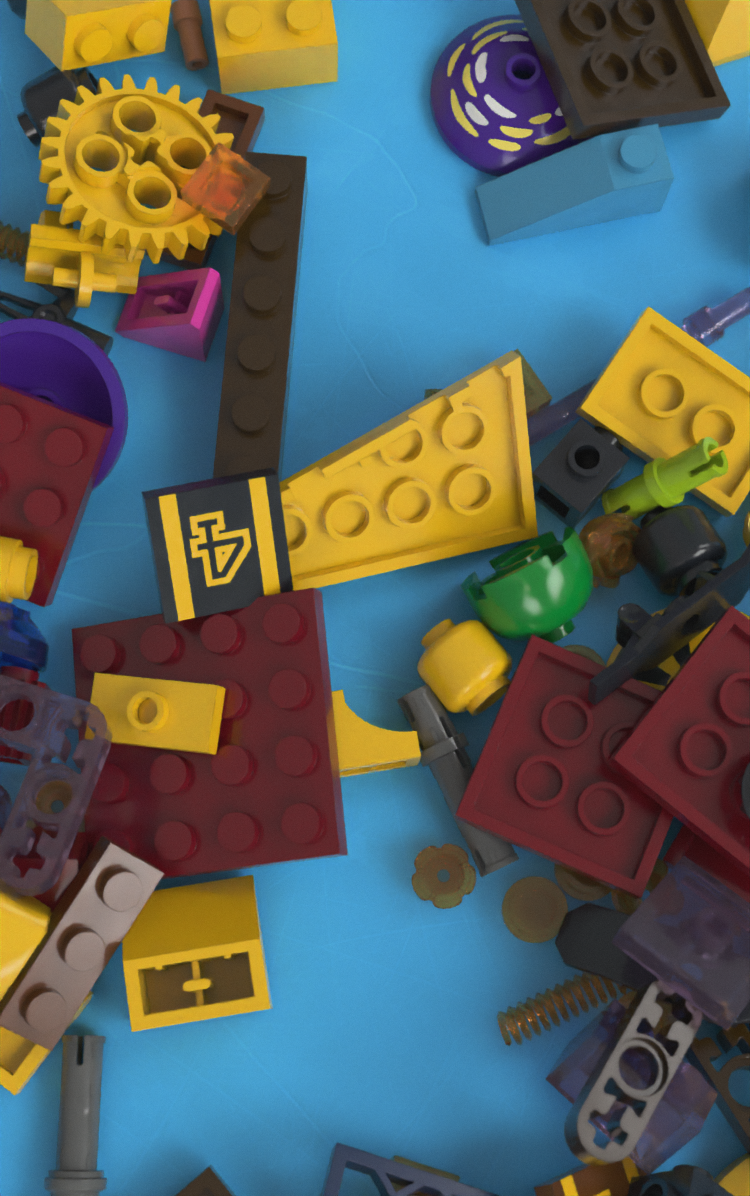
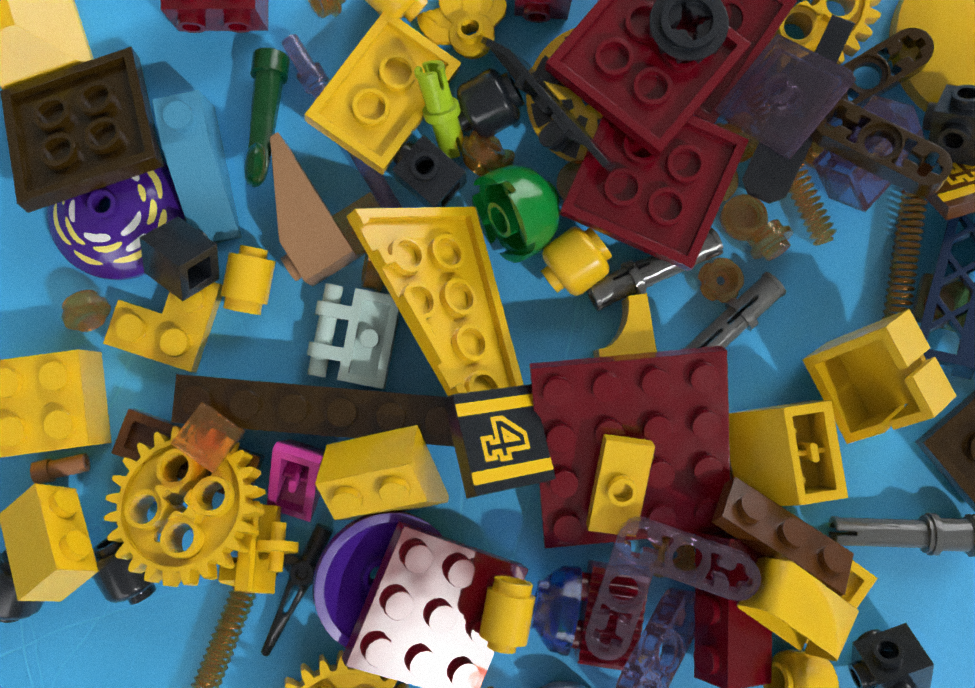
camera: 85 degrees left, 10 degrees up
(173, 402) = (379, 475): none -> yellow slope
(303, 1086) = (876, 374): none -> yellow piece
(352, 397) = (367, 341): none -> light aqua plate
(363, 169) = (169, 337): none -> yellow plate
(369, 1126) = (915, 216): none -> clear orange piece
(388, 57) = (85, 311): none -> clear orange plate
(392, 898) = (742, 311): none -> dark grey pin
(430, 248) = (247, 280): none -> yellow brick
(456, 163) = (180, 258): none -> black brick
(501, 944) = (770, 240): none -> clear orange plate
(514, 314) = (304, 222): none -> medium nougat slope
(707, 272) = (269, 73): none -> dark green plant

